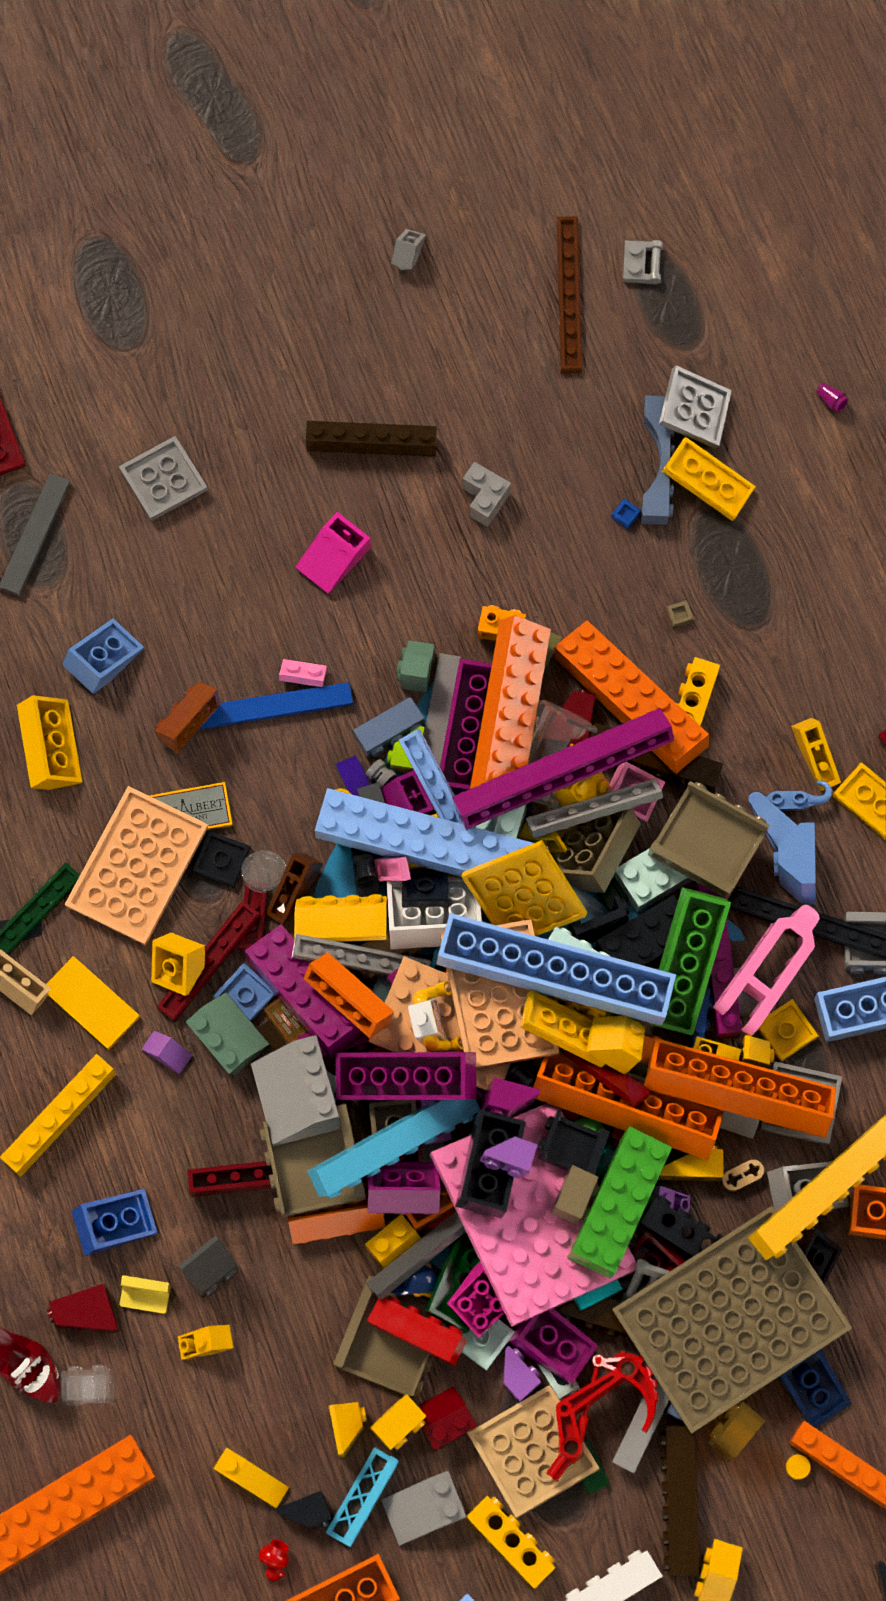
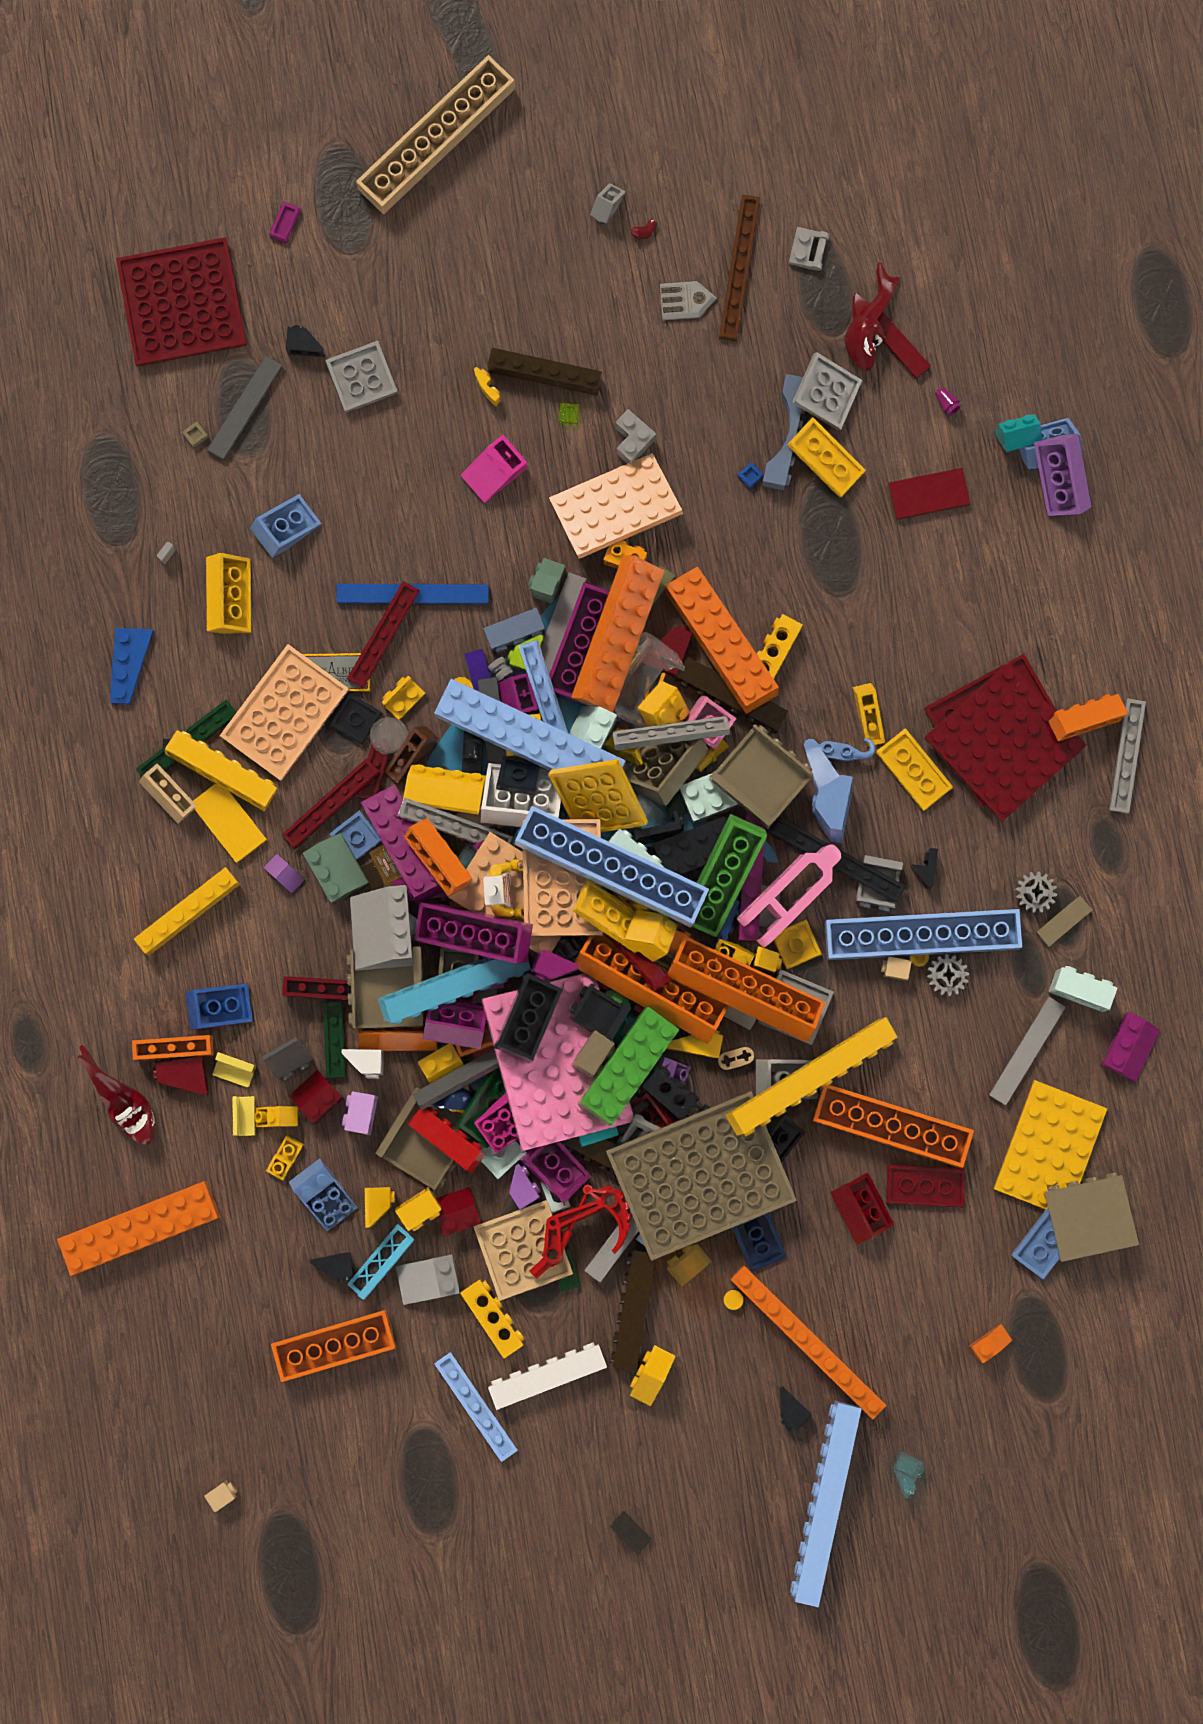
camera: 10 degrees right, 10 degrees up
(47, 327) = (285, 222): none -> magenta tile
(66, 1280) = (172, 1048): none -> orange brick
(72, 943) = (221, 770): none -> yellow brick
(87, 1386) = (172, 1136): clear brick -> none
(90, 452) = (302, 343): none -> black slope
(166, 1348) = (244, 1116): none -> light yellow panel
(176, 962) = (303, 801): yellow slope -> none
(188, 716) = (347, 592): dark orange slope -> none
(202, 207) = (436, 134): none -> tan brick
(223, 1390) = (284, 1157): none -> yellow slope
(237, 758) = (383, 634): none -> dark red tile
(249, 1310) = (316, 1097): none -> dark red slope
(251, 1478) = (294, 1231): yellow slope -> none
(259, 1238) = (334, 1039): none -> dark green tile
(272, 825) = (403, 697): none -> yellow bracket
(276, 1559) = (303, 1297): red animal -> none
(278, 1427) = (323, 1194): none -> medium blue slope
(302, 673) = (450, 569): bright pink plate -> none
(302, 1254) = (366, 1061): none -> white slope
(303, 460) = (484, 381): none -> yellow slope
(308, 1317) = (360, 1113): none -> lavender brick
(392, 868) = (494, 754): bright pink tile -> none
(406, 480) = (568, 413): none -> clear neon green tile
(454, 273) = (644, 232): none -> dark red arm
(480, 570) = (615, 506): none -> light nougat plate
(512, 1156) = (546, 1017): medium lavender slope -> none
(514, 338) = (684, 300): none -> light grey tile
(563, 768) = (650, 696): magenta brick -> none
(644, 830) = (712, 755): none -> yellow pin
(679, 614) = (778, 572): dark tan tile -> none
(724, 329) = (865, 323): none -> dark red piece
(764, 346) = (902, 348): none -> dark red tile
(832, 500) = (929, 493): none -> dark red tile

